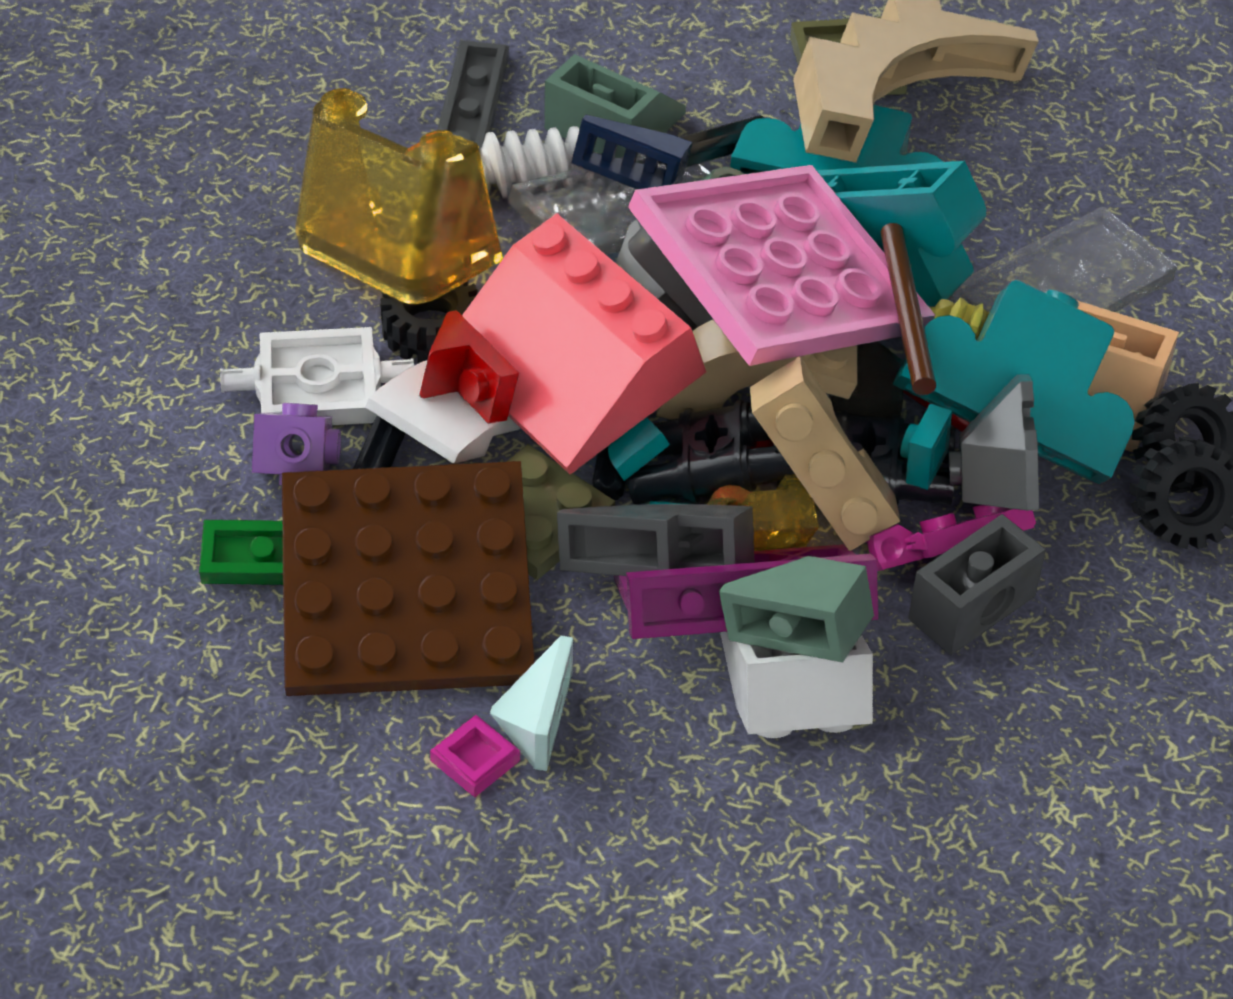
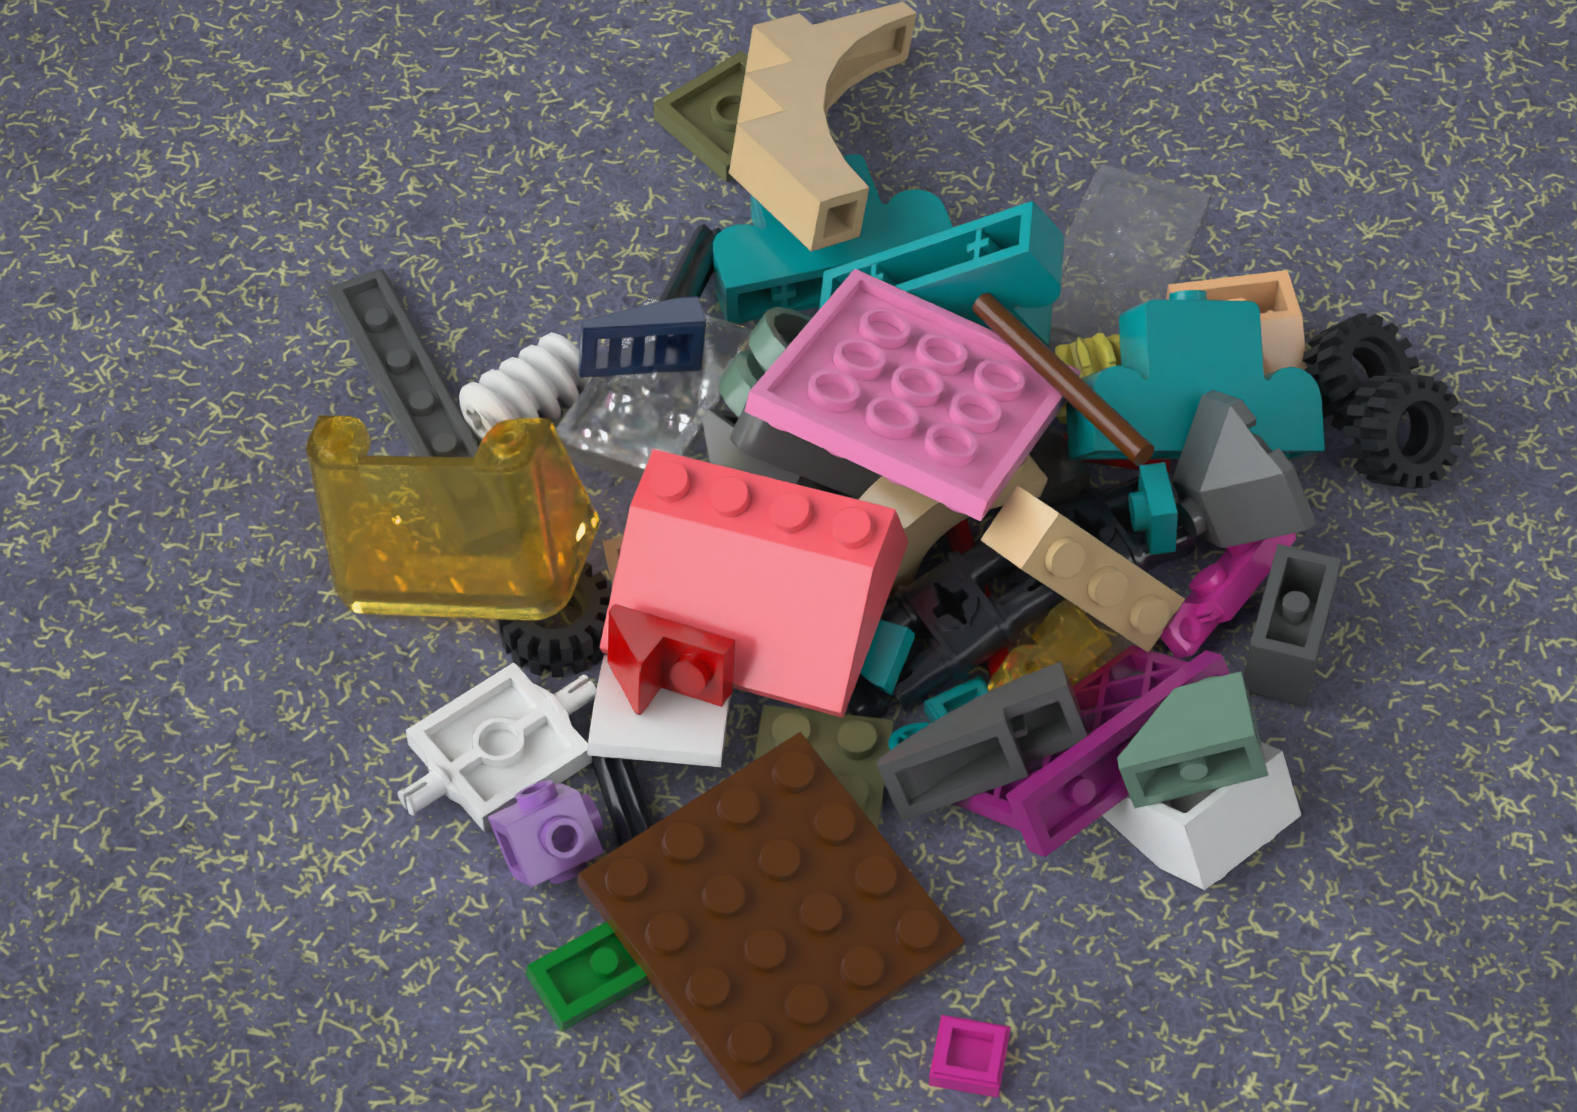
camera: 30 degrees left, 5 degrees up
(535, 703) = (991, 973): light aqua slope -> none
(593, 90) = (549, 292): sand green slope -> none

